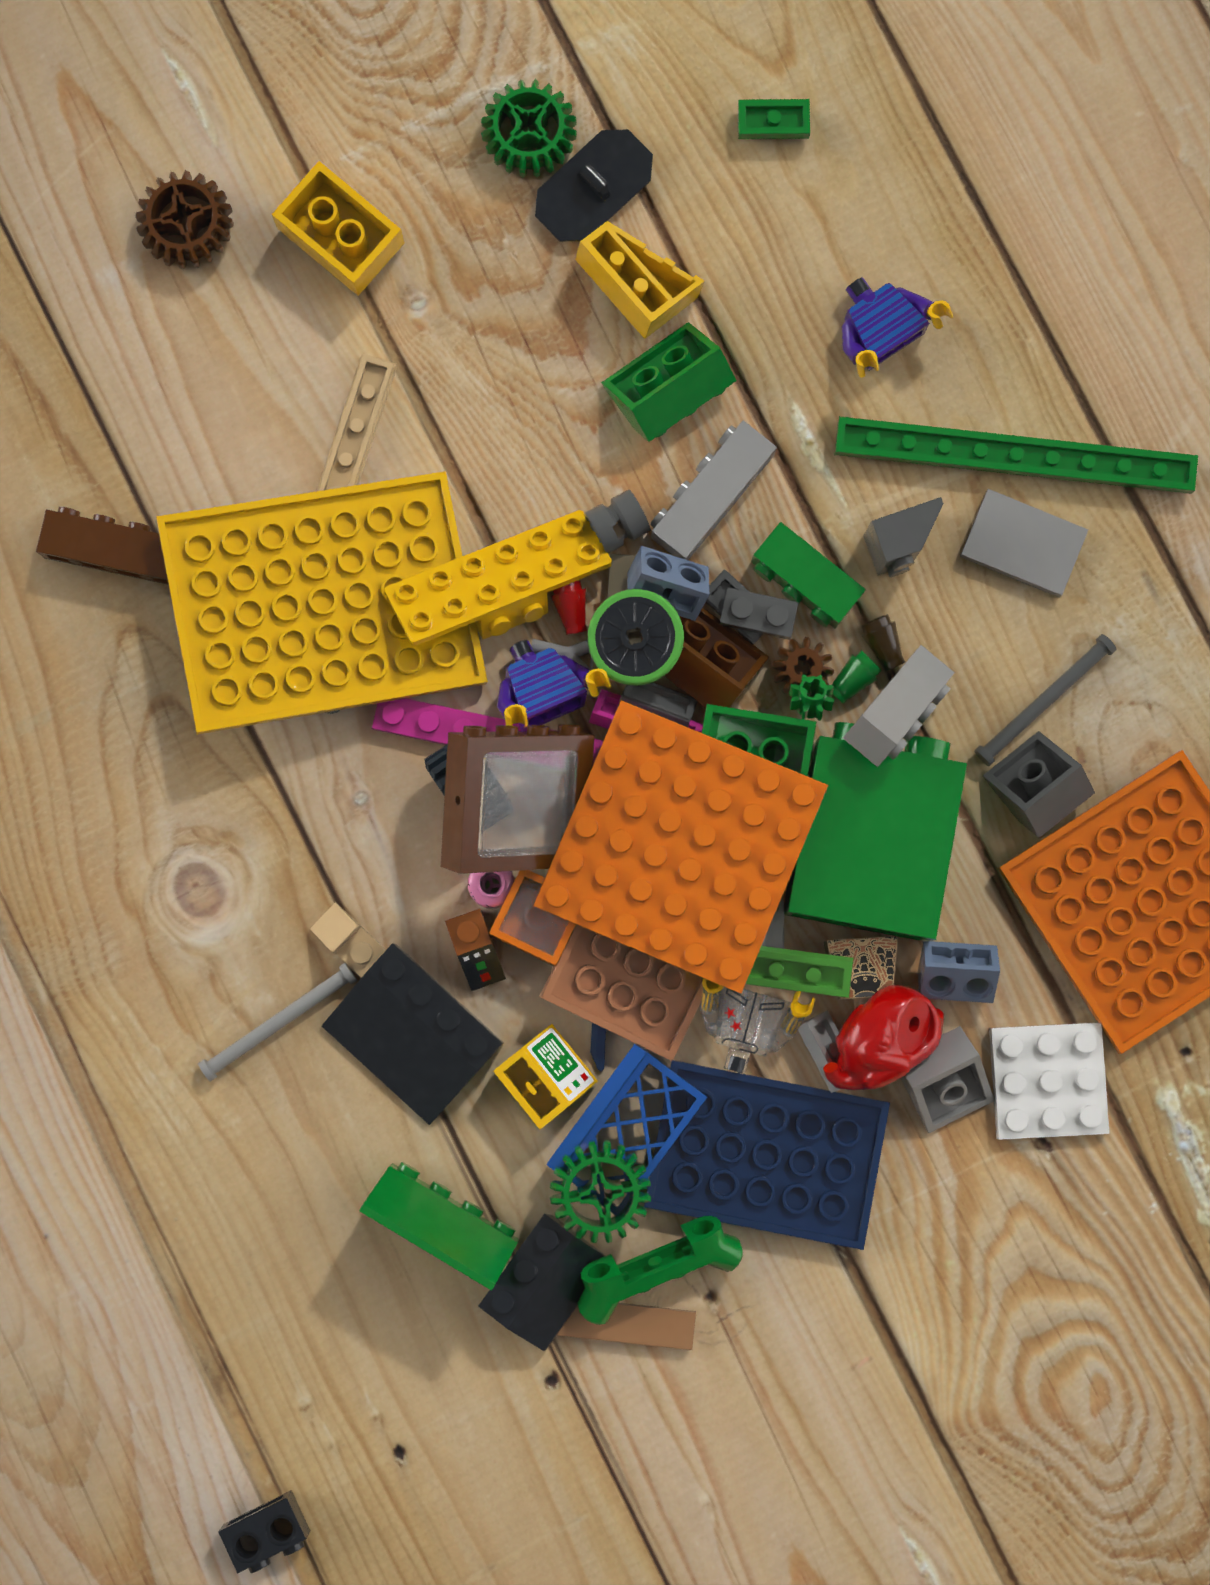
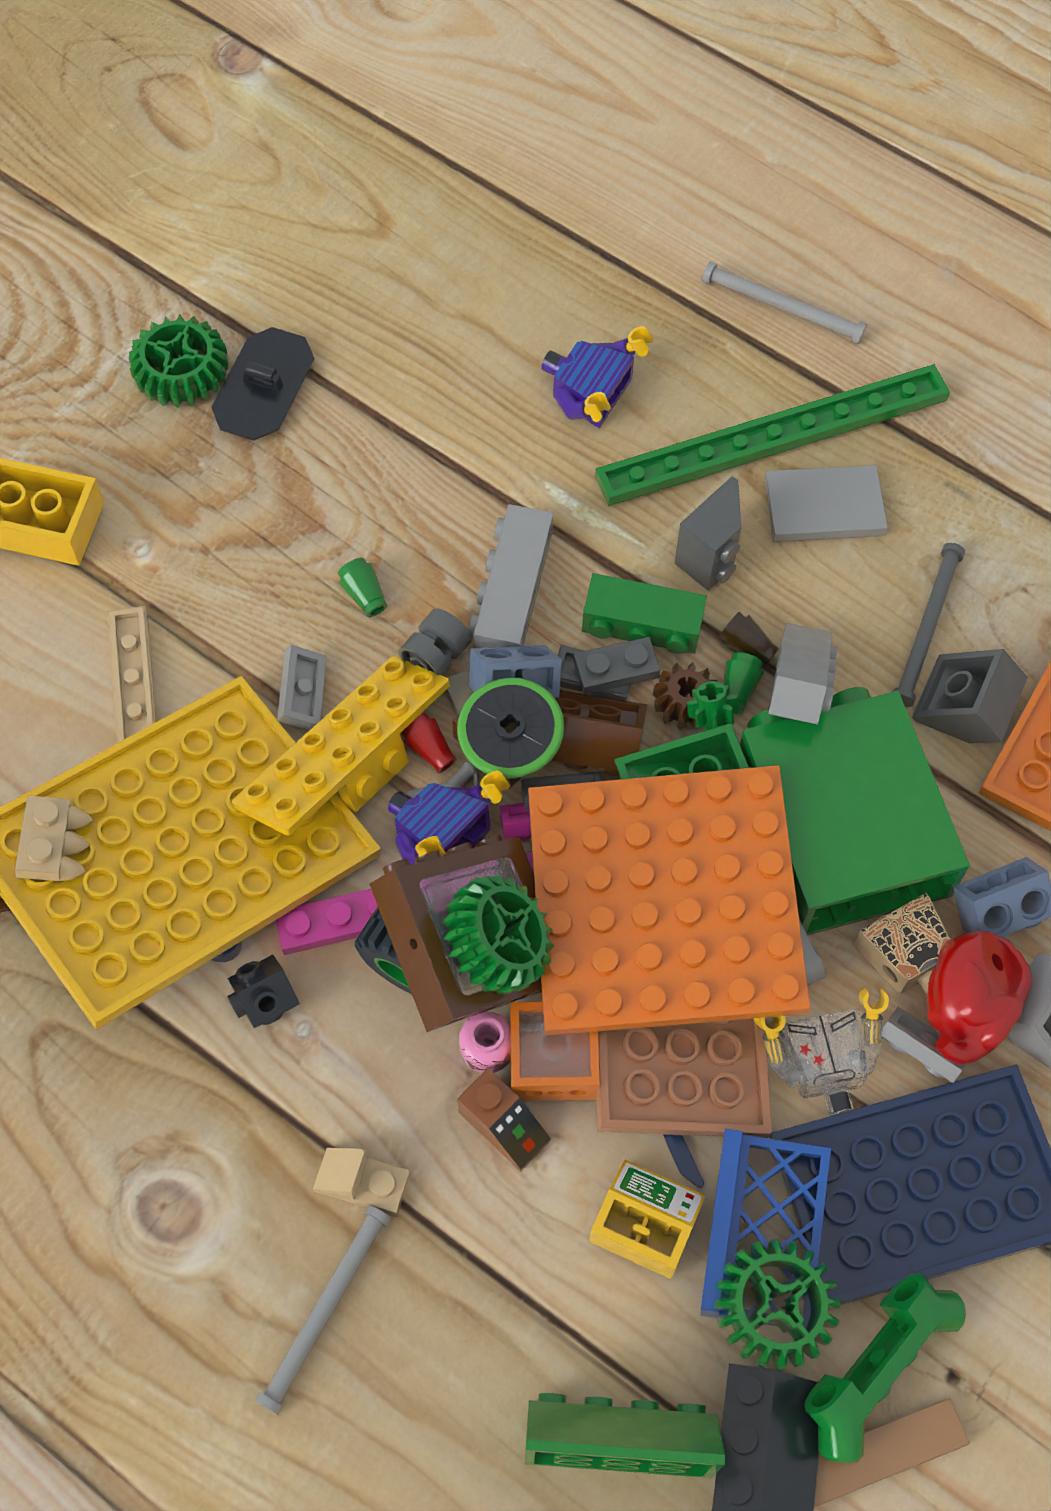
camera: 25 degrees left, 20 degrees down
(223, 558) = (47, 839): none -> tan plate
(339, 758) = (261, 992): none -> black brick
(412, 1033) = (480, 1244): black slope -> none
(490, 506) = (301, 687): none -> light grey plate
(518, 814) = (498, 934): none -> green gear
(585, 434) = (362, 585): none -> green cone
(635, 279) = (342, 435): yellow wedge -> none
(669, 381) = (421, 508): green slope -> none
(774, 119) = (401, 266): green plate -> none
(802, 971) = (856, 968): bright green plate -> none
(1102, 322) = (784, 302): none -> light grey bar

